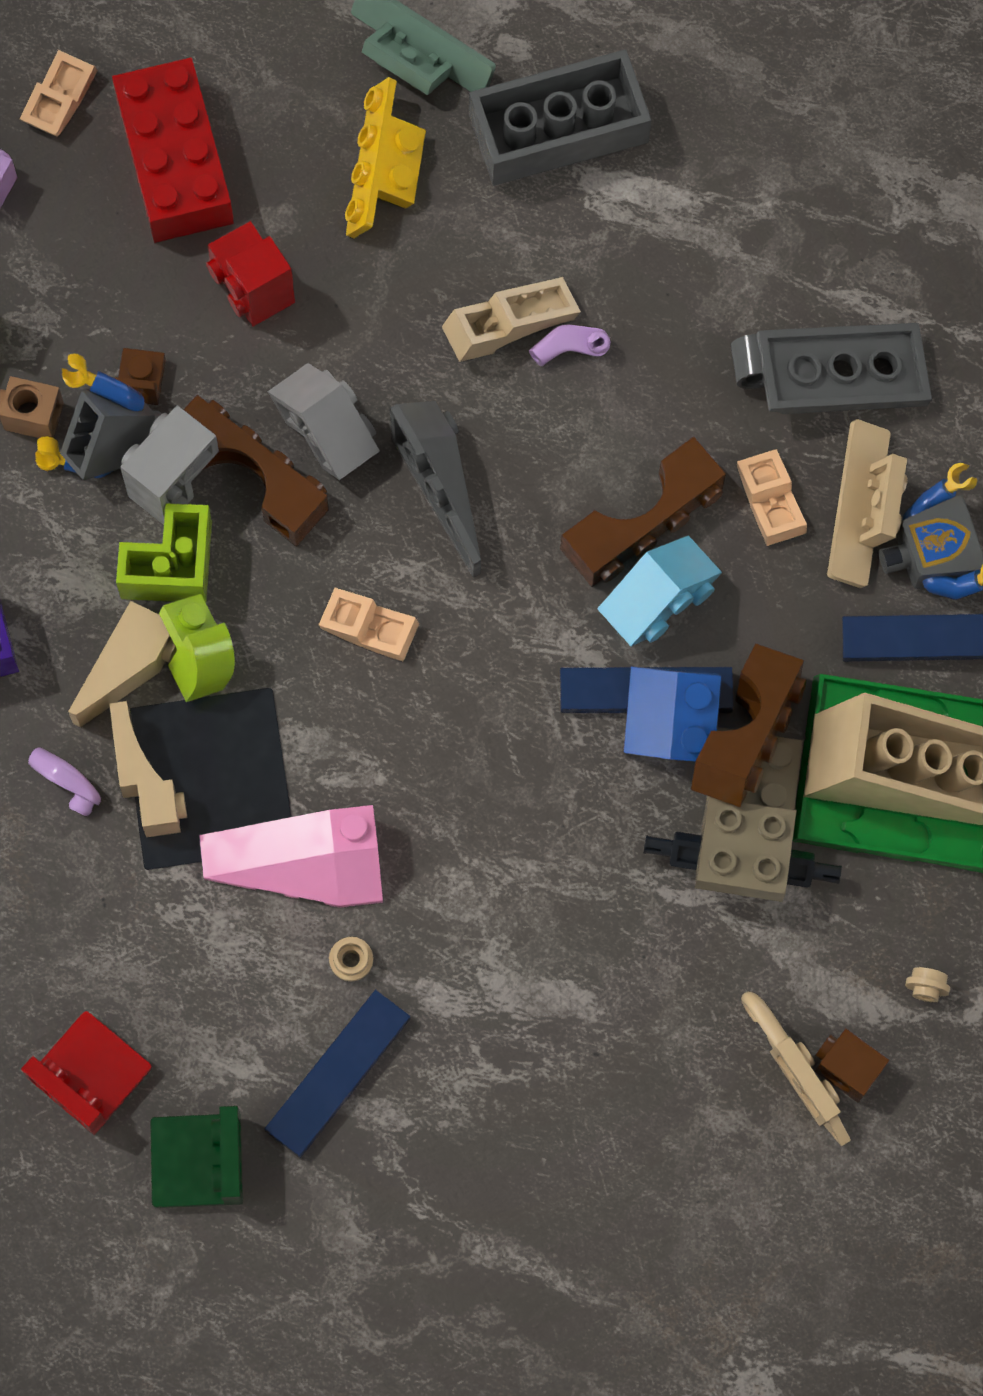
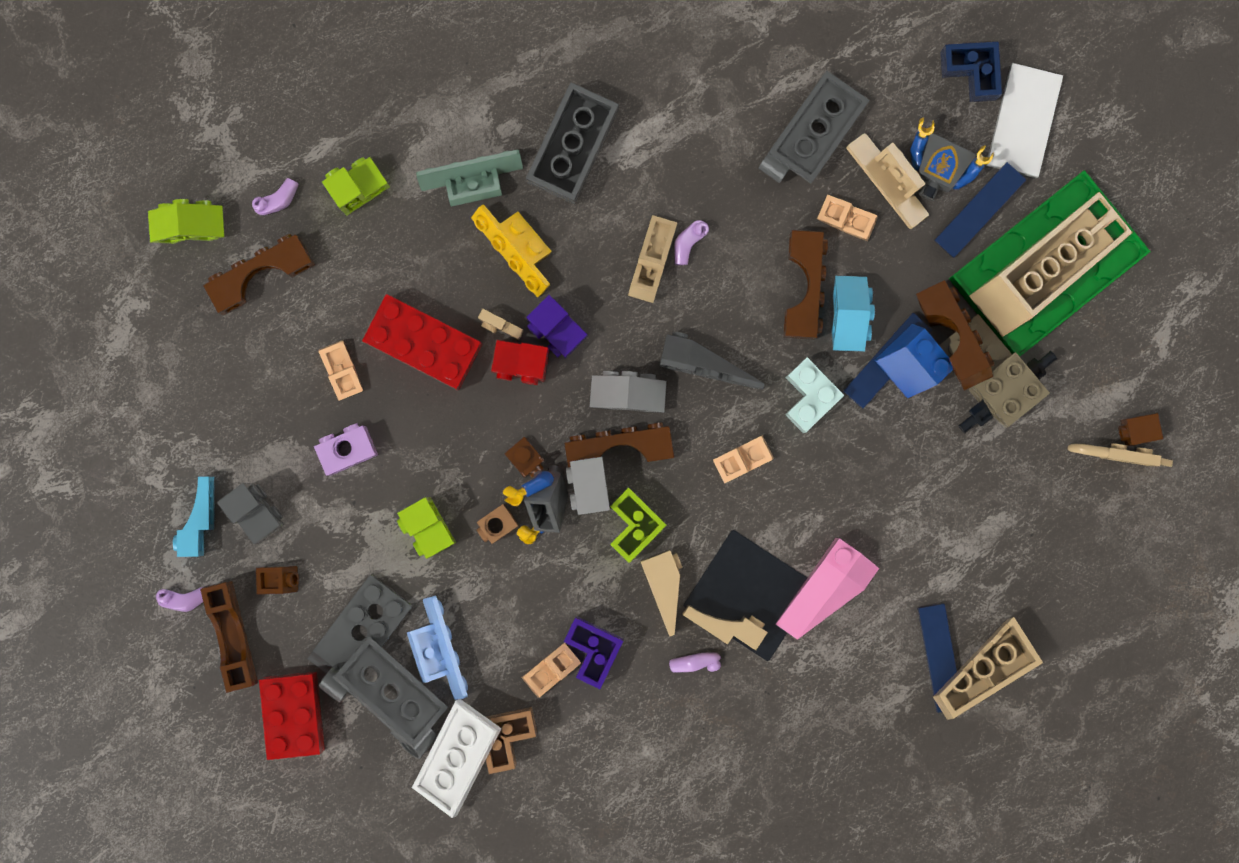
camera: 45 degrees left, 15 degrees up
(88, 1072) = (843, 769): red bracket -> none
(197, 1159) = (925, 754): dark green bracket -> none
(204, 649) = (693, 549): lime brick -> none
(269, 207) = (492, 323): none -> tan plate
(328, 264) = (556, 327): none -> dark purple brick
(344, 947) = (900, 612): tan plate -> none
(372, 1136) = (992, 667): none -> tan wedge
(518, 642) = (817, 392): none -> light aqua brick
(928, 984) = (1136, 361): tan plate -> none

